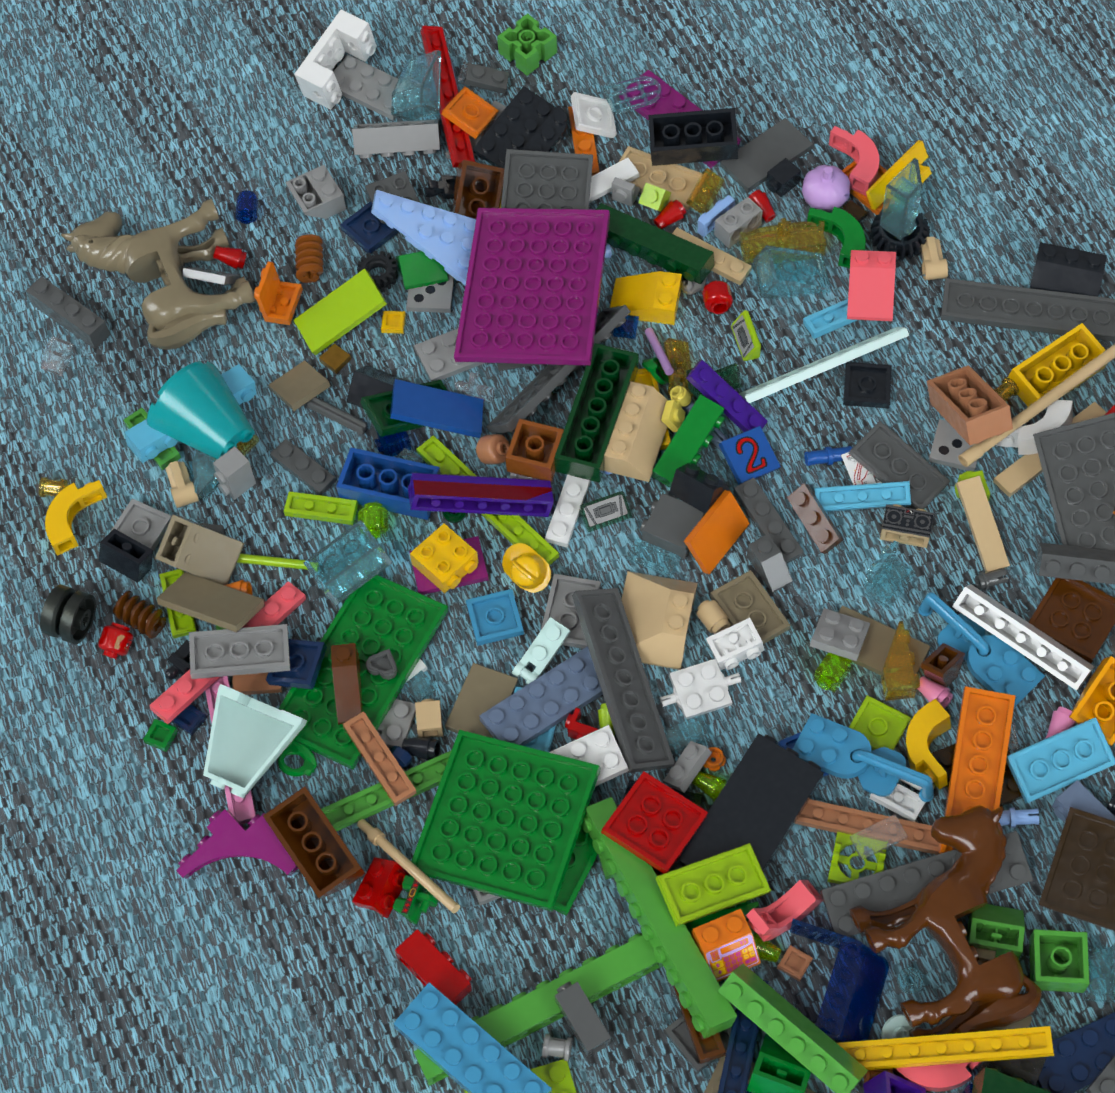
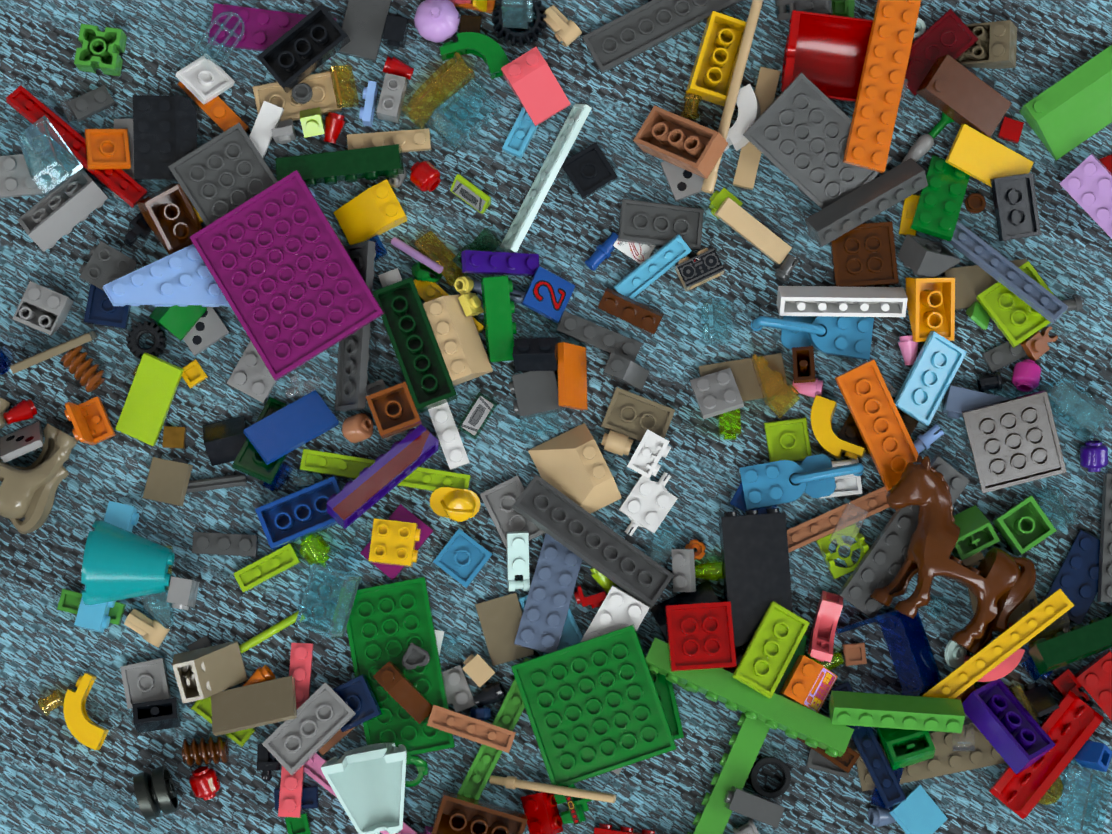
camera: 40 degrees left, 20 degrees up
(294, 226) = (54, 351): none -> dark tan tile
(638, 1002) = (785, 774): none -> black tyre
(664, 172) = (302, 93): none -> dark grey plate

